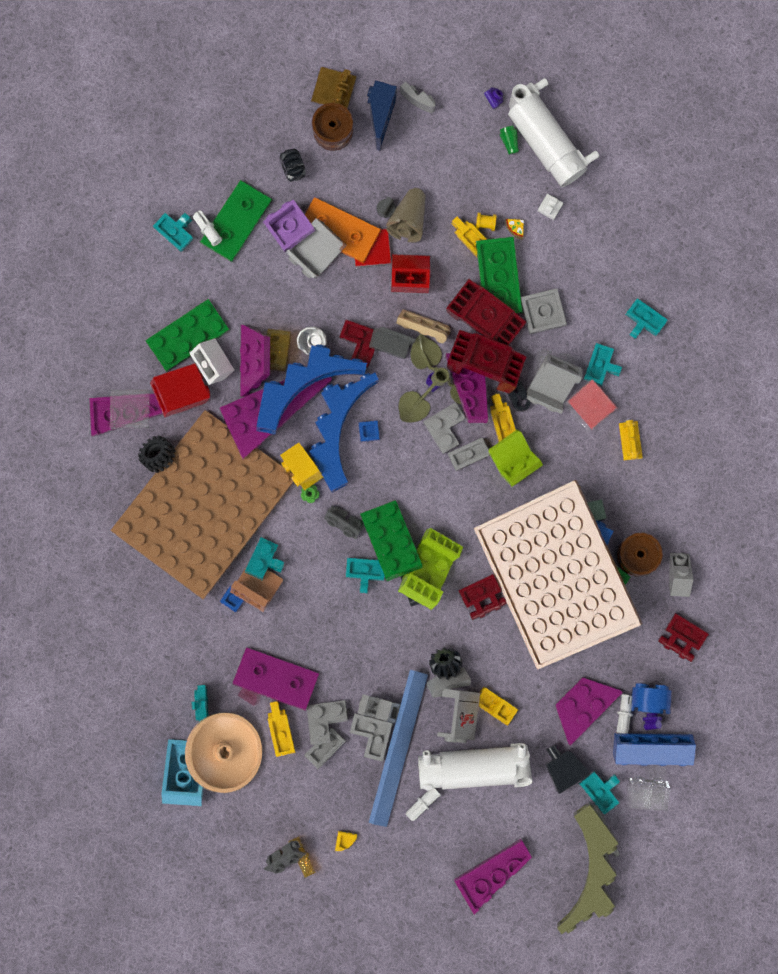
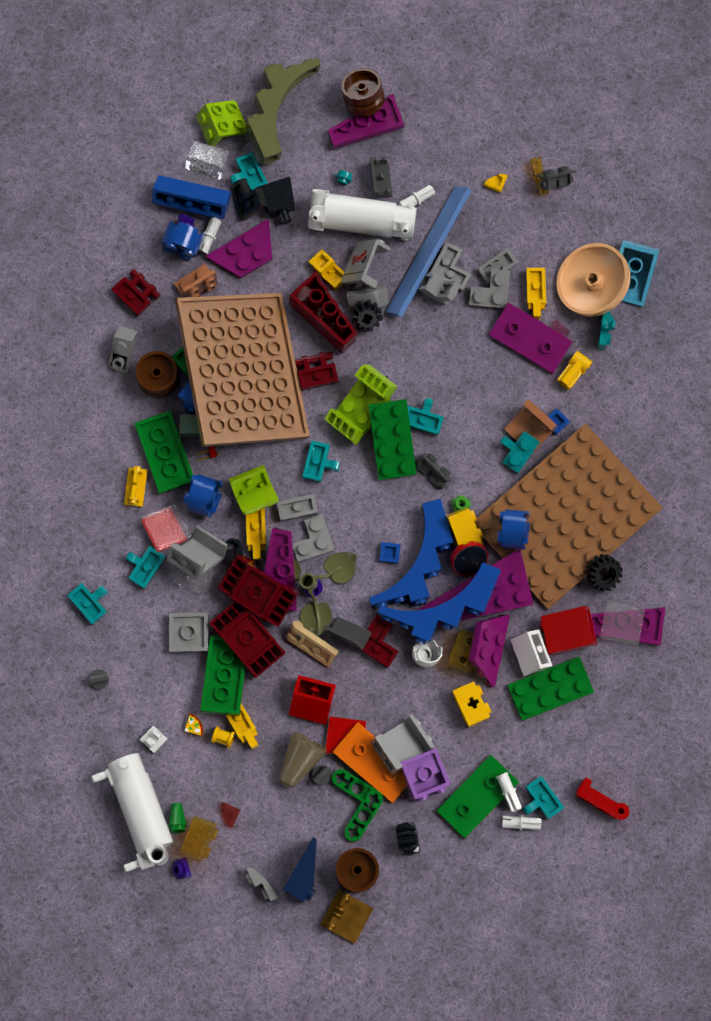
camera: 165 degrees left, 5 degrees down
(119, 239) = (600, 801): none -> red leg
(189, 205) = (521, 822): none -> white axle
(224, 656) = (576, 367): none -> yellow piece
(251, 472) = (514, 529): none -> blue brick
(254, 292) = (470, 715): none -> yellow brick
(290, 438) = (468, 558): none -> black tile
(343, 196) = (363, 797): none -> green beam
(459, 504) = (318, 461): none -> teal plate
(462, 155) = (229, 814): none -> clear red tile
(465, 817) = (380, 177): none -> dark grey hinge
(486, 125) = (199, 838): none -> clear yellow brick
(491, 657) = (322, 312): none -> dark red wedge
(503, 809) = (343, 177): none -> teal plate
(505, 905) = (363, 92): none -> reddish brown wheel
(562, 443) = (203, 495): none -> blue brick
(595, 756) = (247, 202): none -> pearl dark grey plate
(611, 480) = (164, 452): none -> green plate
(616, 250) = (99, 679): none -> dark grey plate
(625, 661) = (197, 282): none -> nougat bracket
(644, 842) = (221, 121): none -> lime bracket

